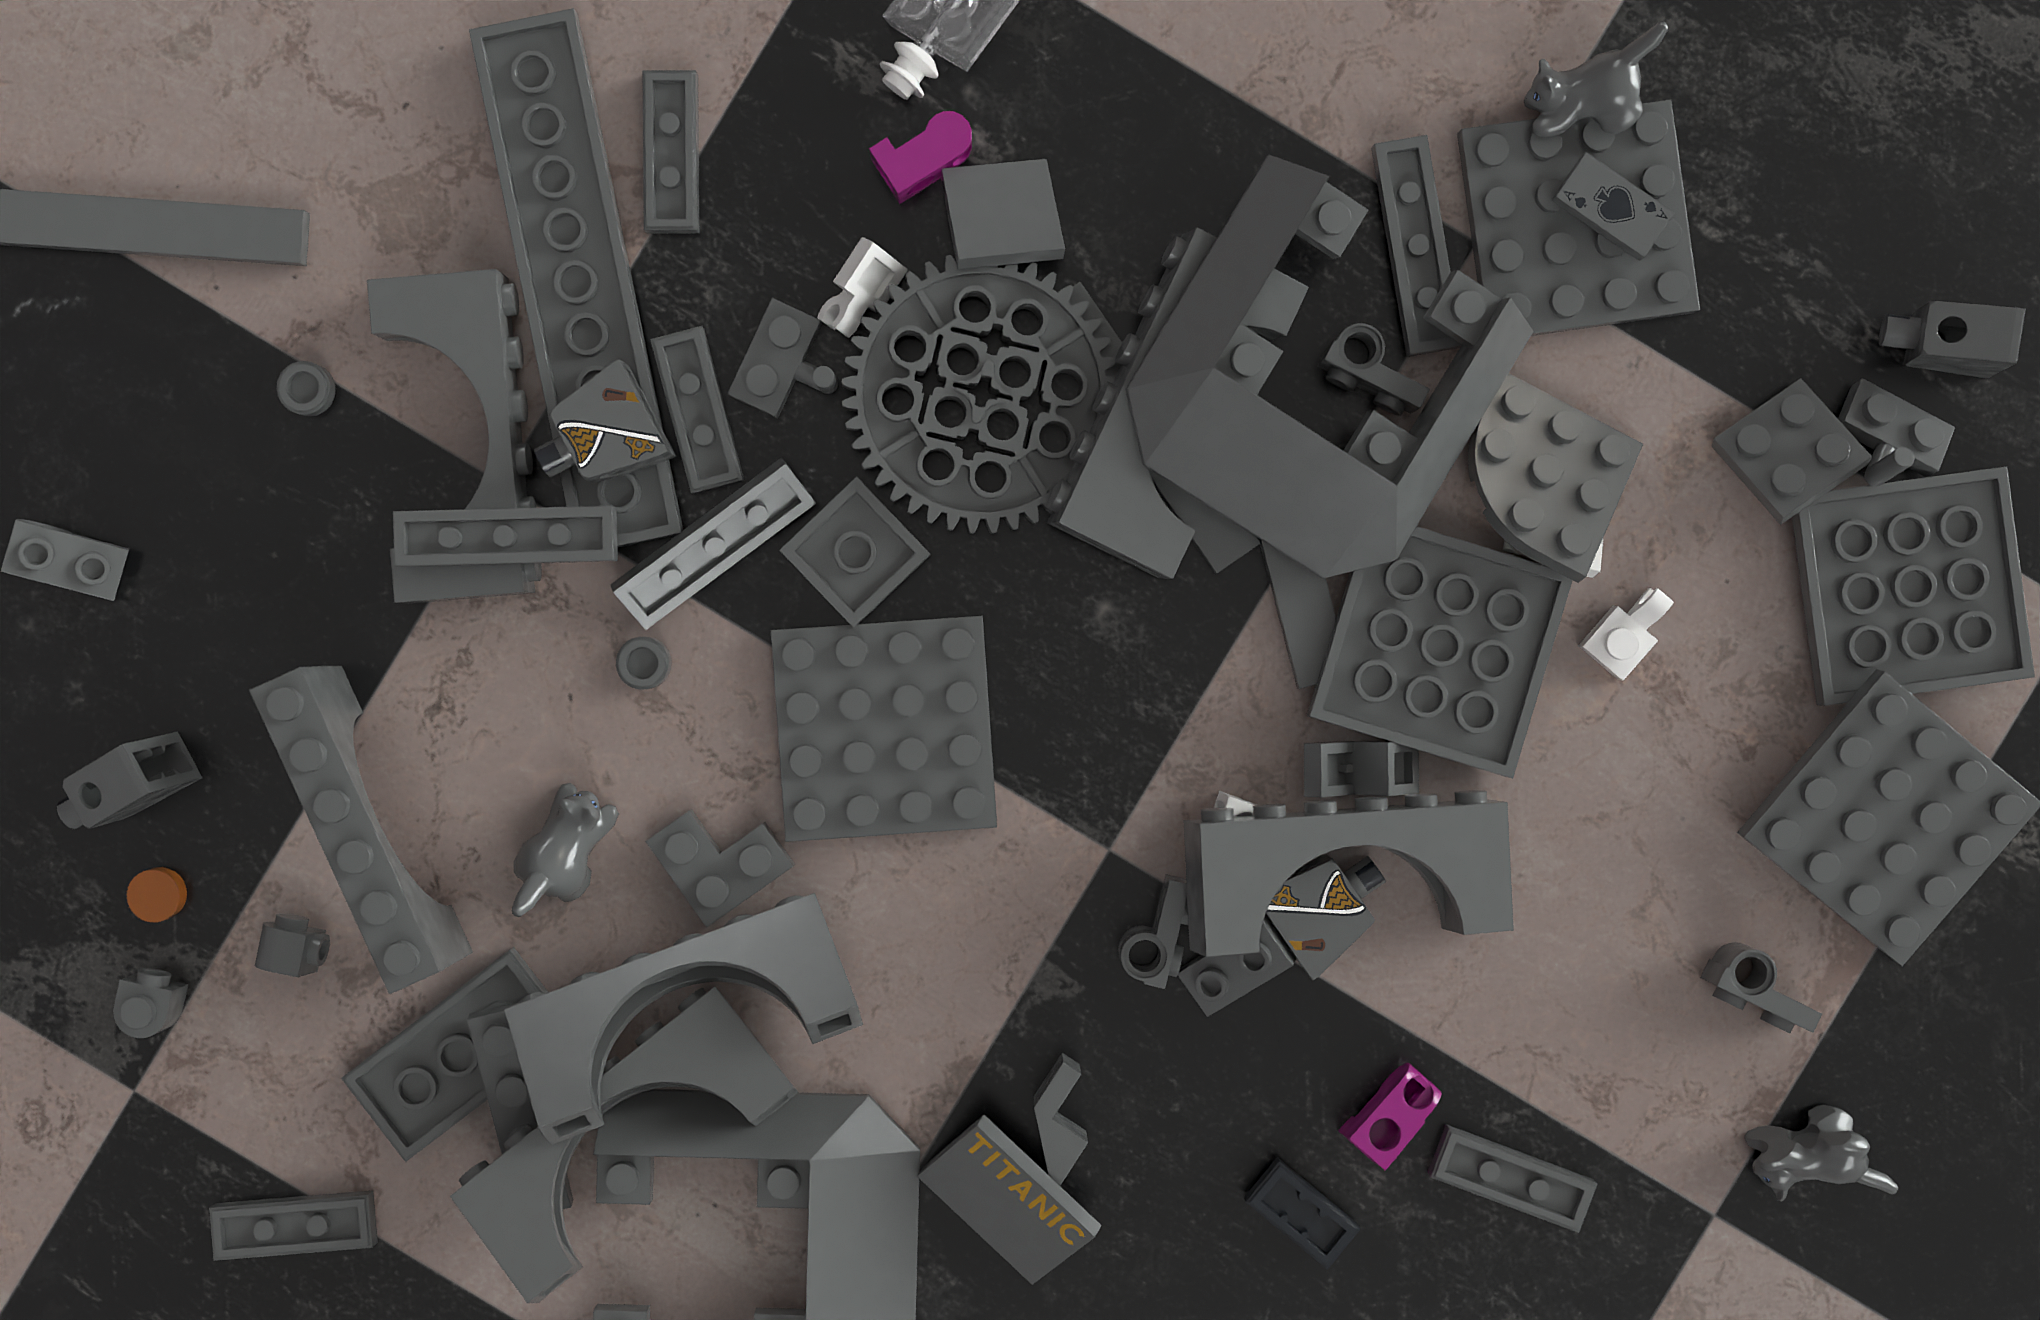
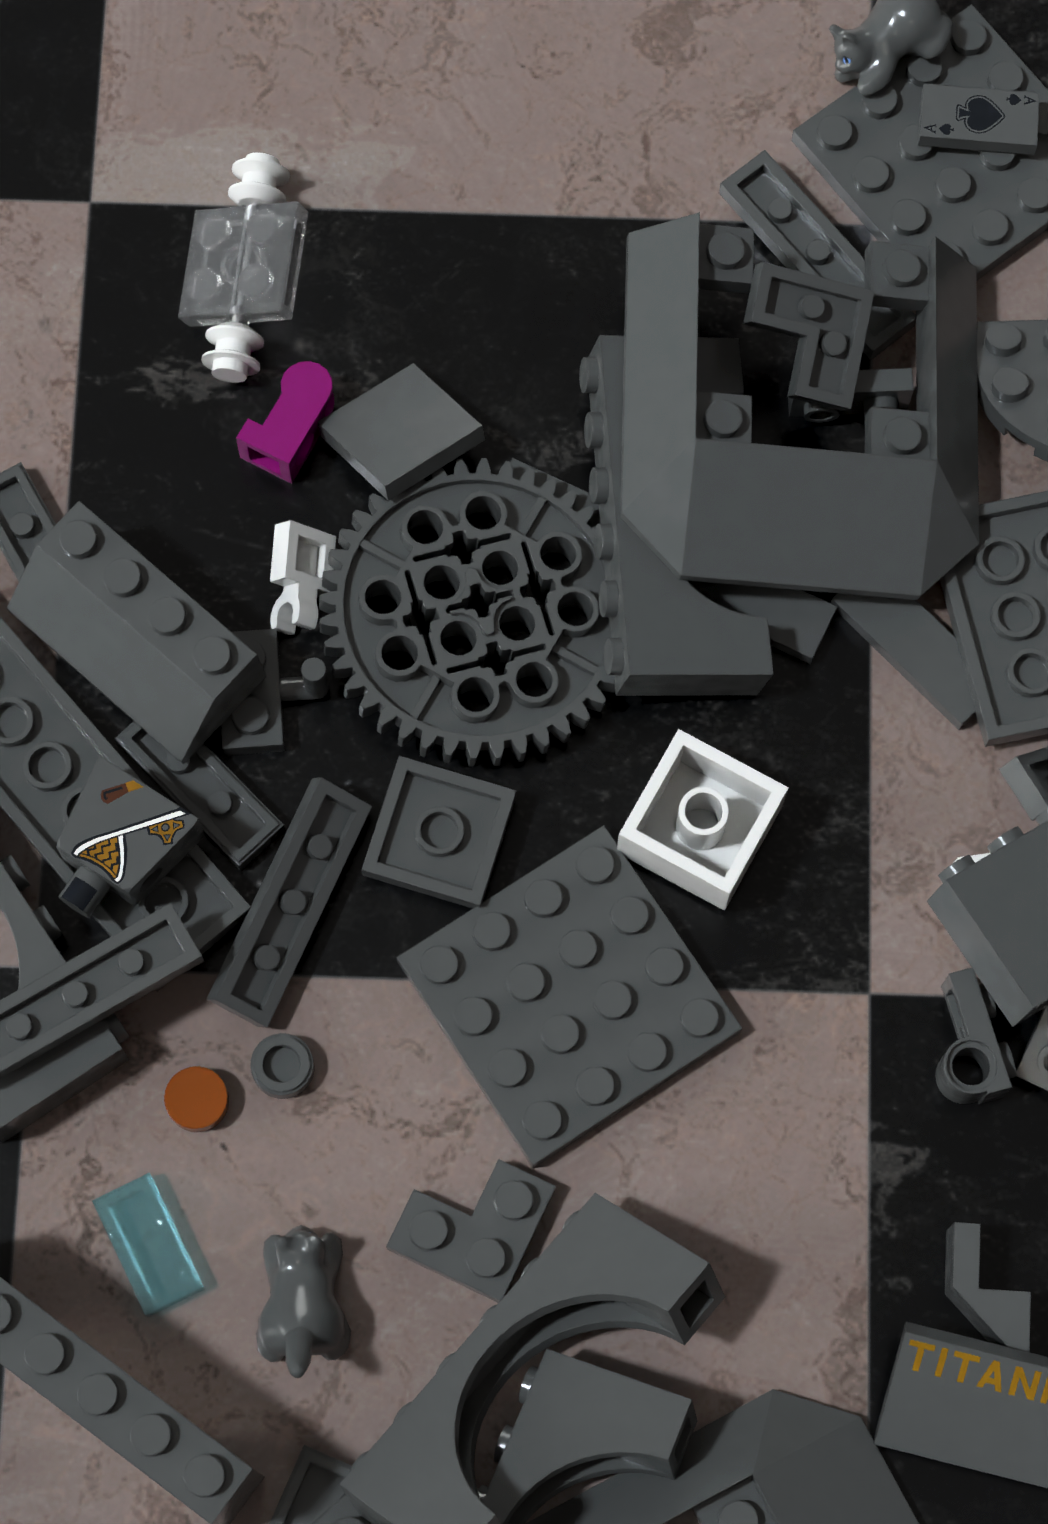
camera: 25 degrees left, 15 degrees down
(475, 741) = (148, 1245): none -> clear light blue tile
(566, 653) = (196, 1099): none -> dark orange tile
(703, 266) = (133, 633): none -> dark grey slope
(1055, 657) = (701, 819): none -> white brick
(1381, 323) = (830, 327): none -> dark grey plate

